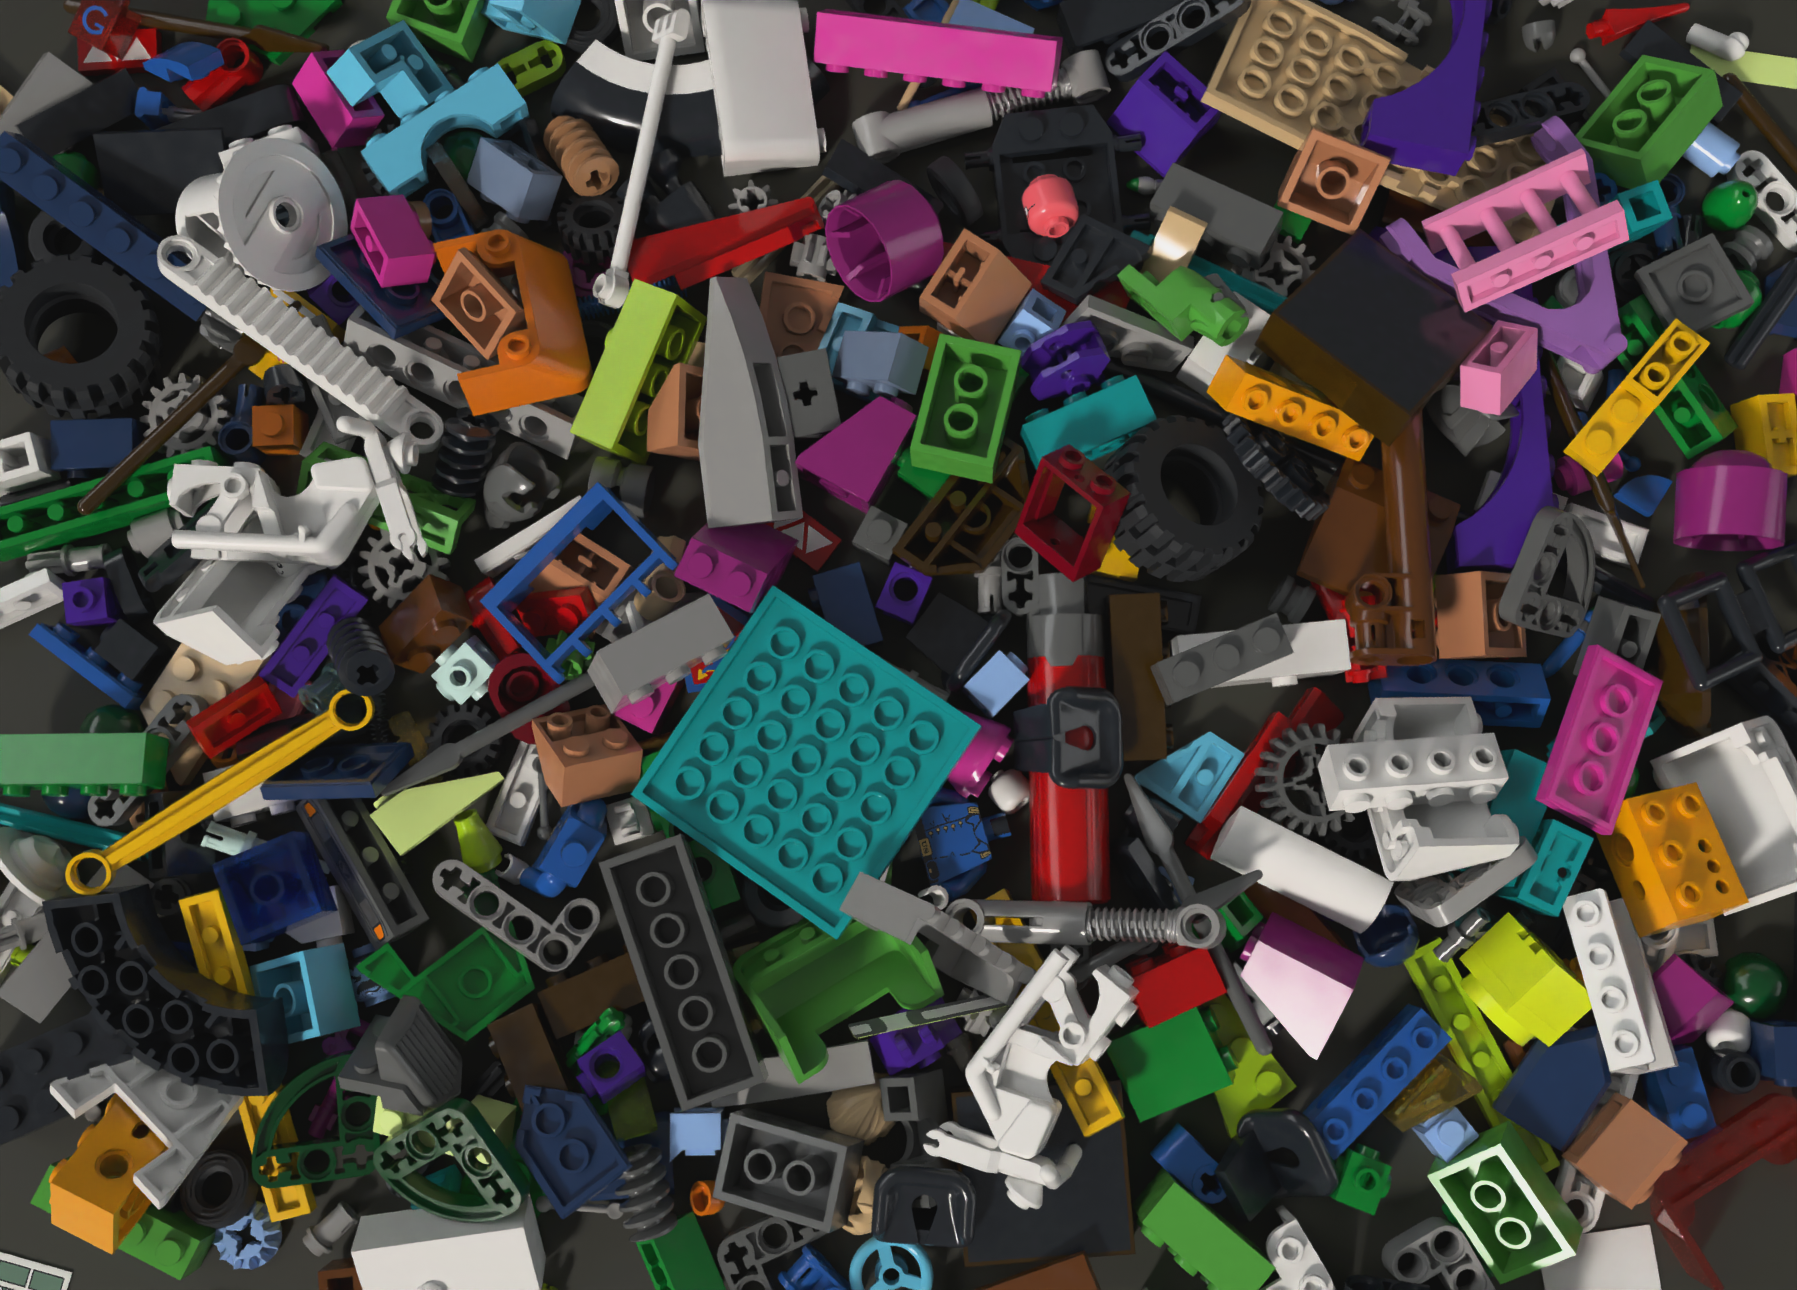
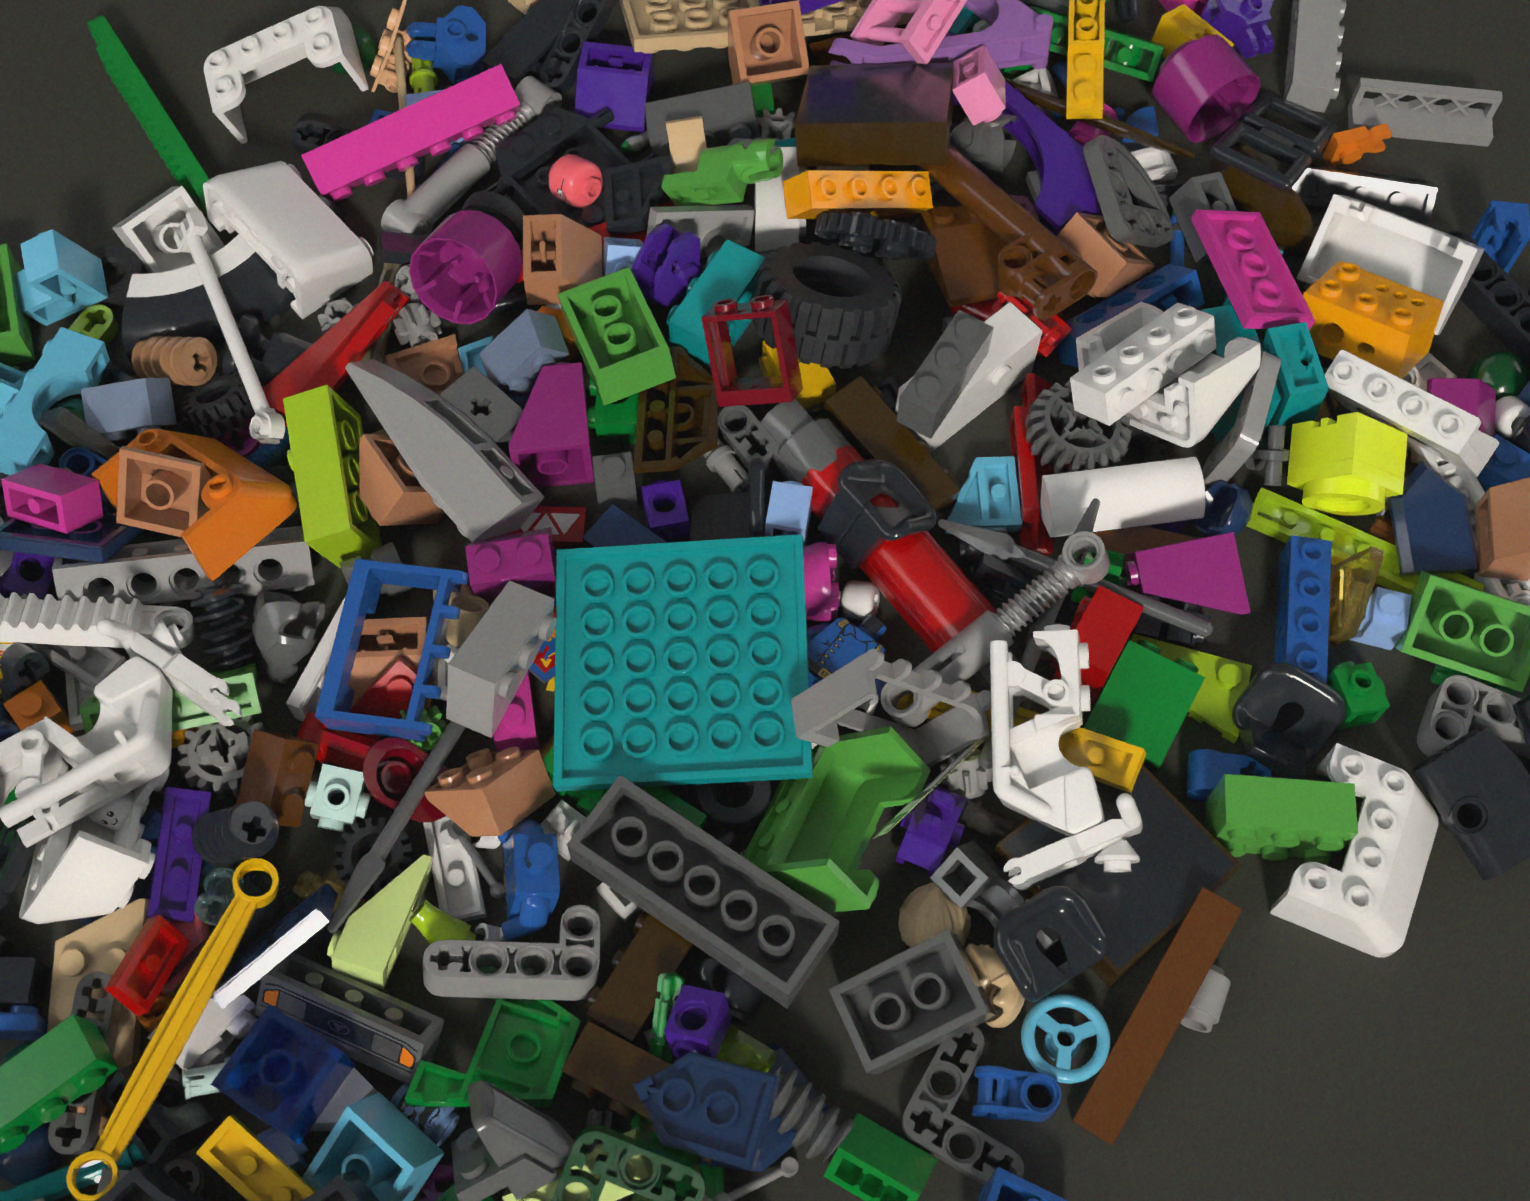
camera: 40 degrees left, 20 degrees down
(697, 1131) = (812, 1037): light blue window -> none
(702, 1198) = (860, 1092): orange hinge -> none
(847, 1067) = (861, 929): light grey slope -> none

